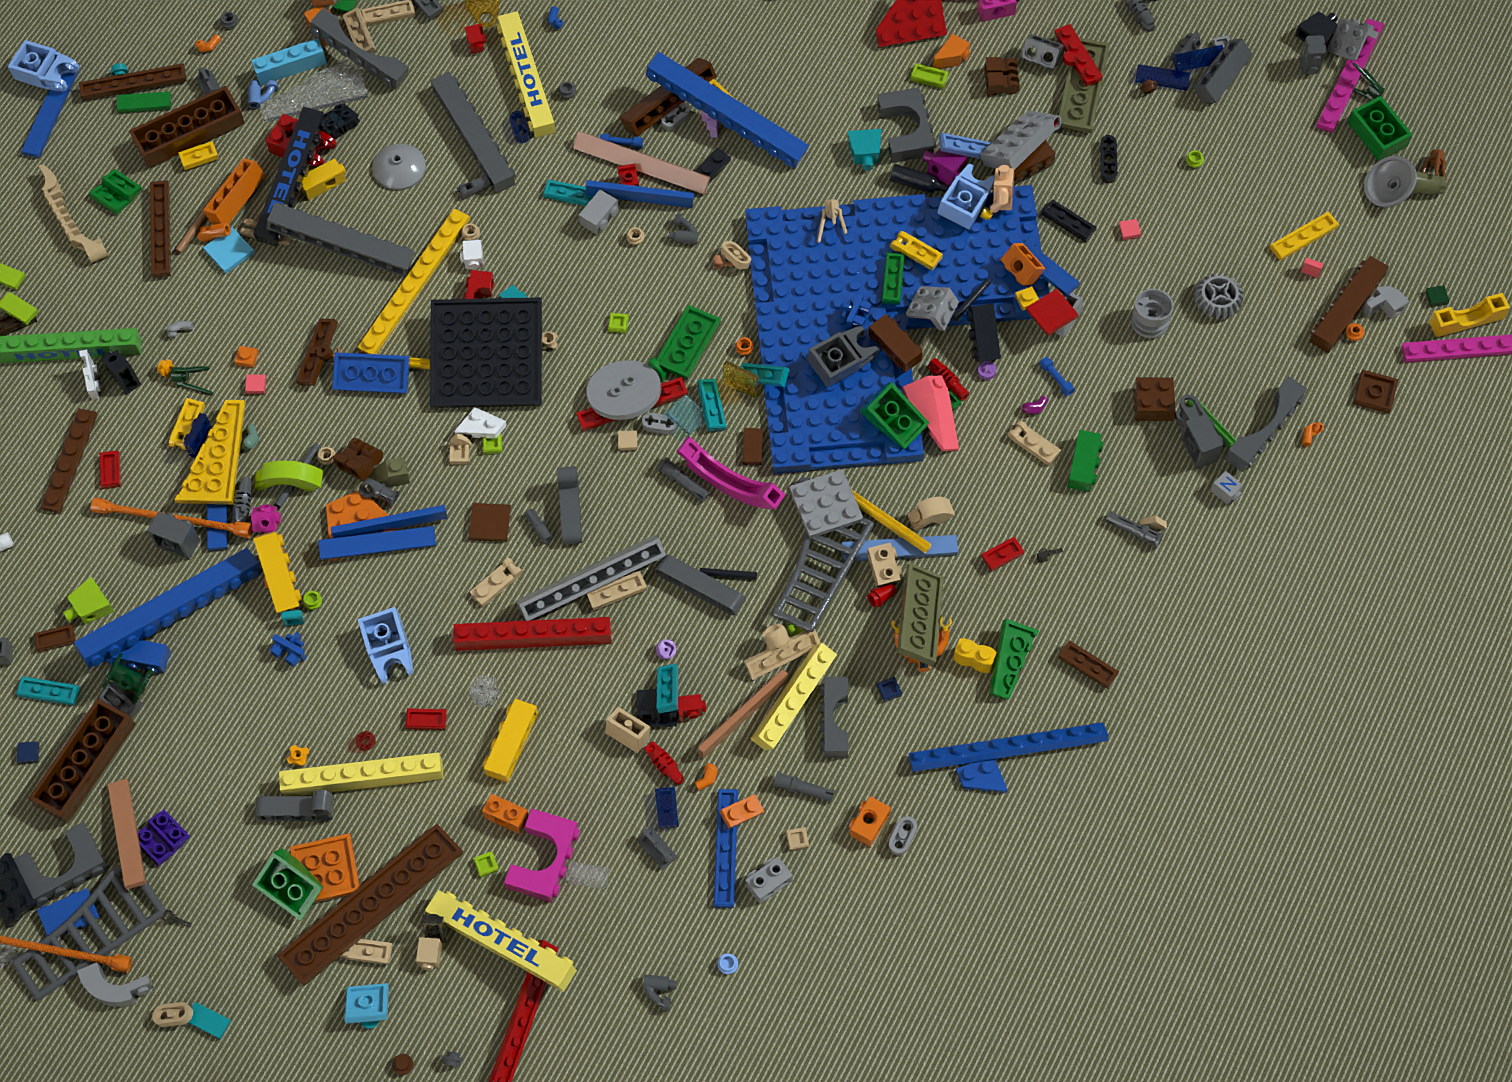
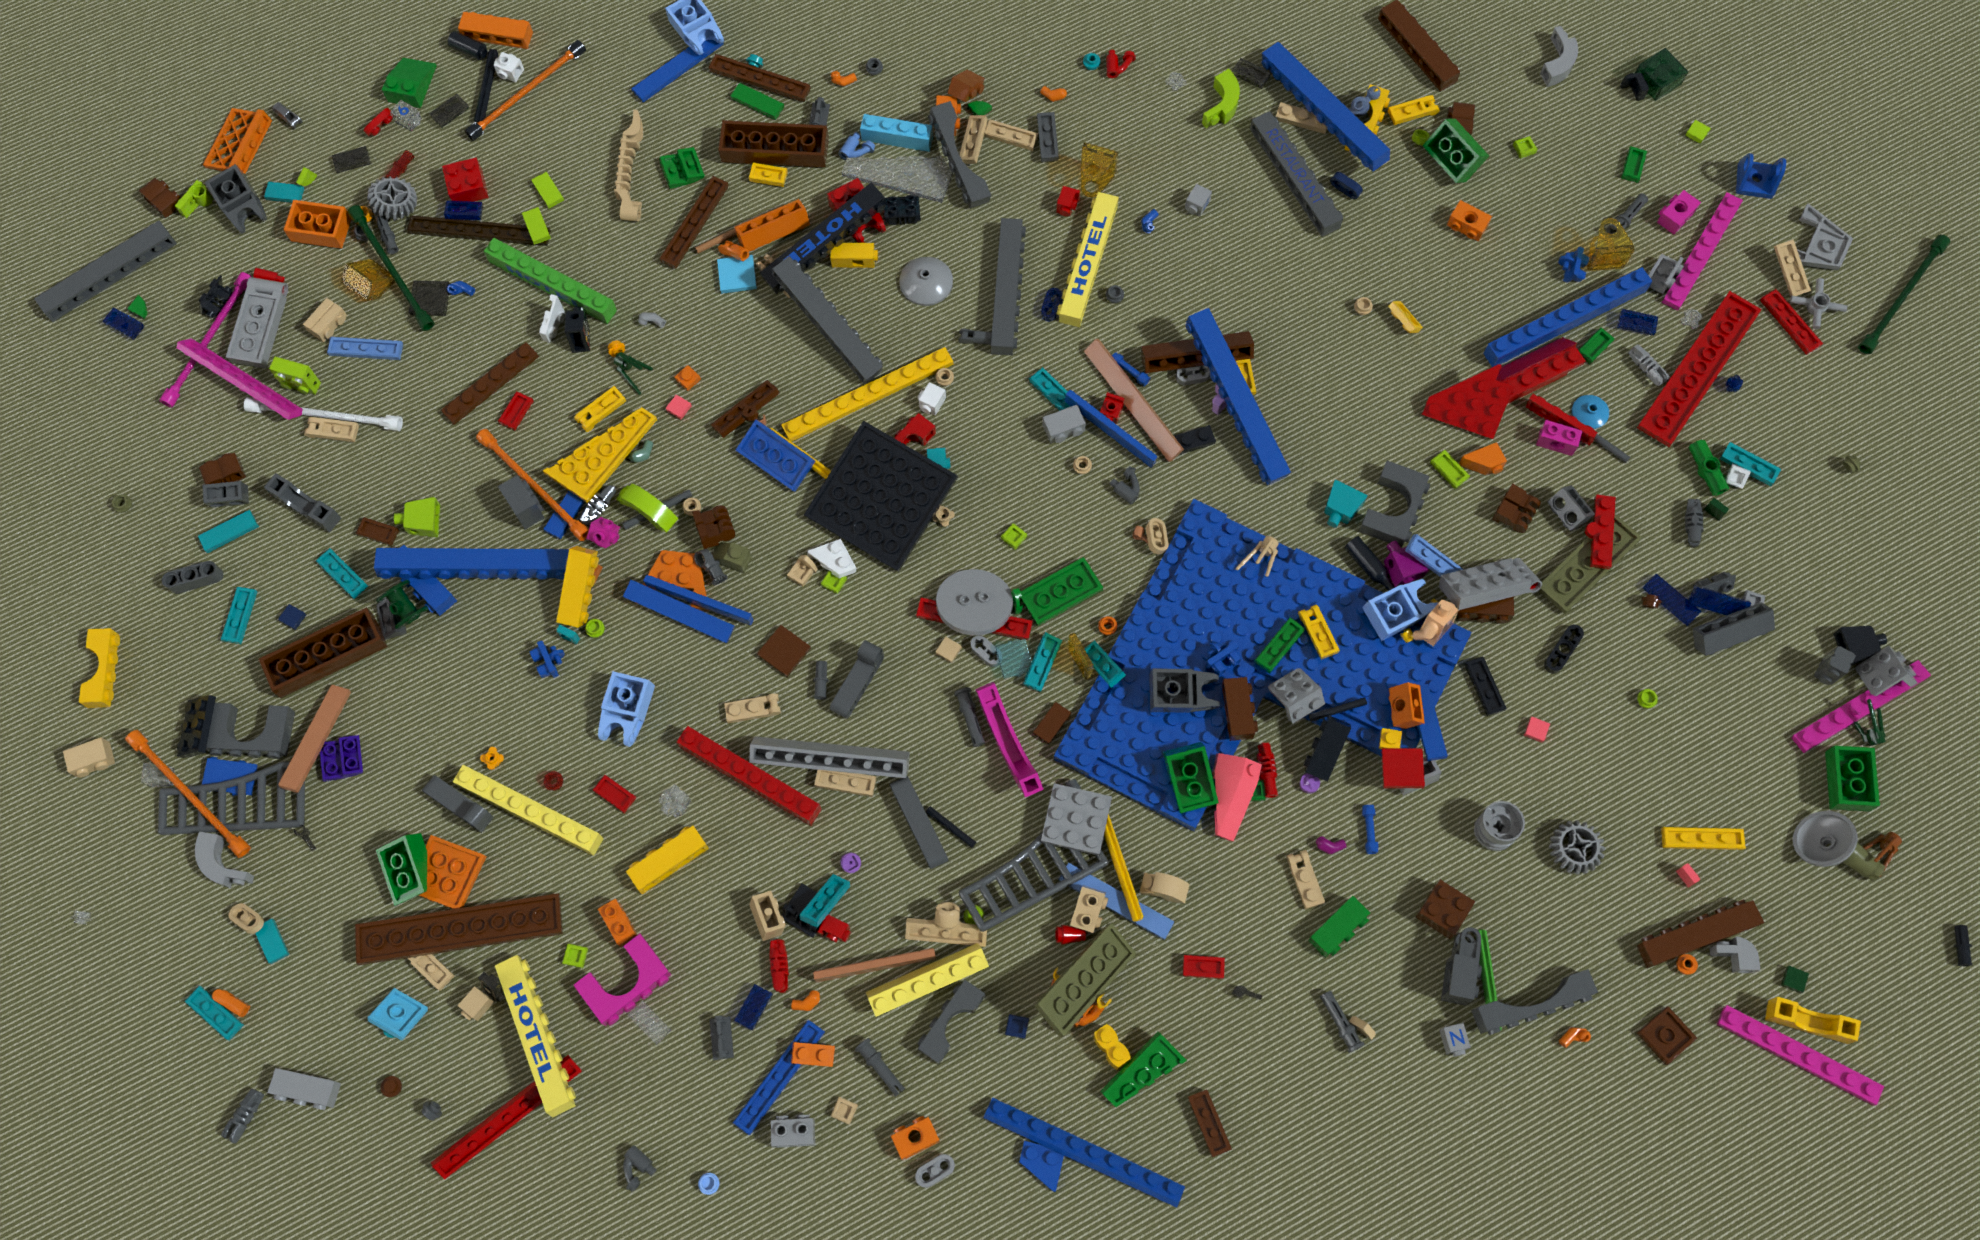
camera: 35 degrees right, 5 degrees up
(197, 435) = (600, 423): clear blue plate -> none

